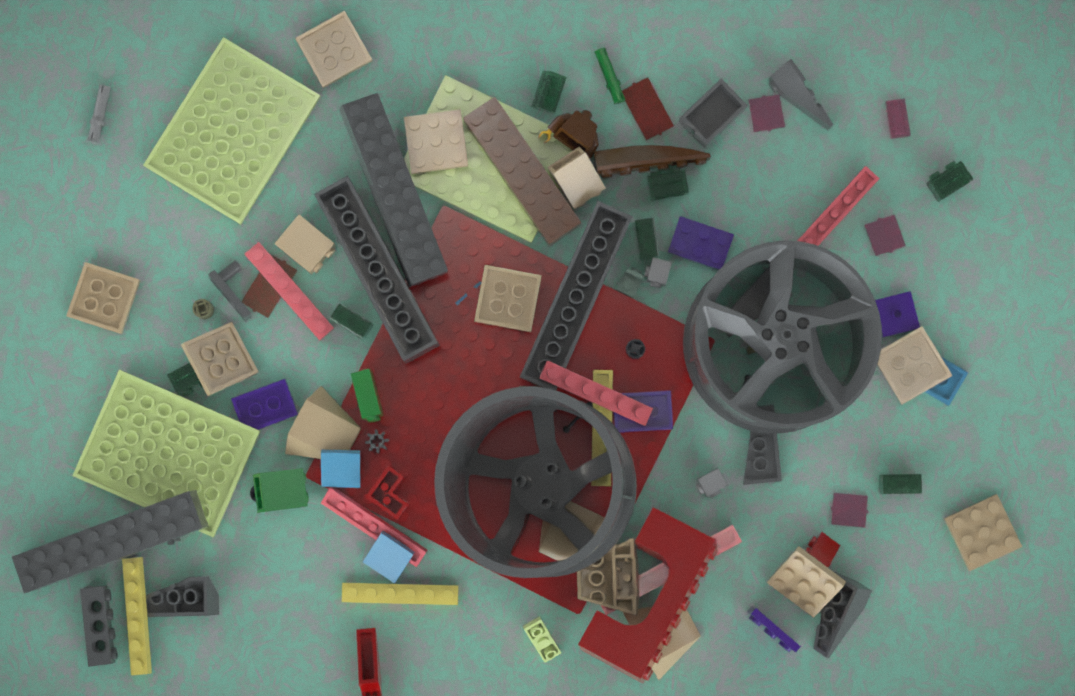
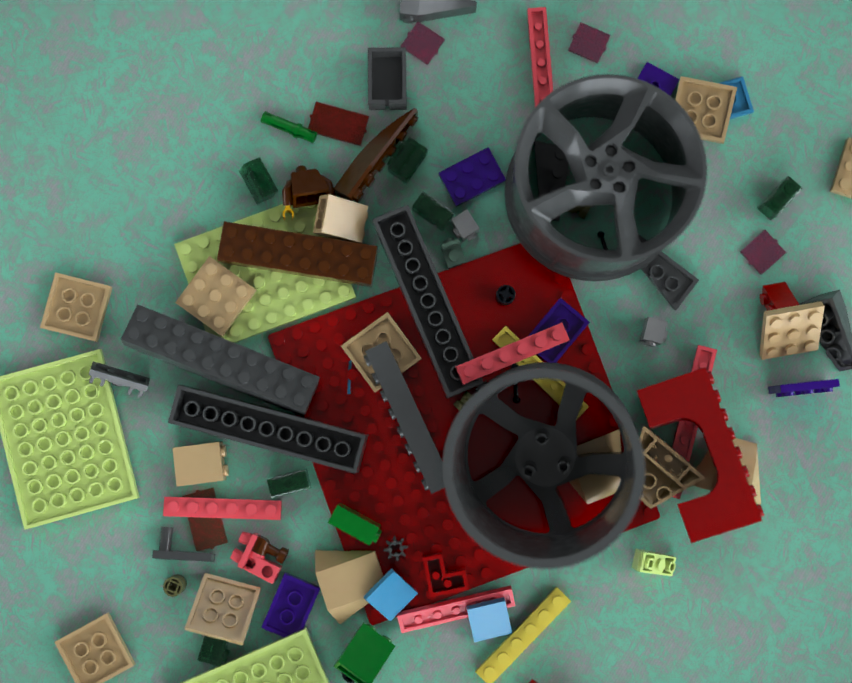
camera: 50 degrees left, 0 degrees up
(275, 346) = (254, 559): none -> coral hips
(312, 129) = (119, 378): none -> dark grey plate
(481, 355) = (407, 414): none -> dark grey brick

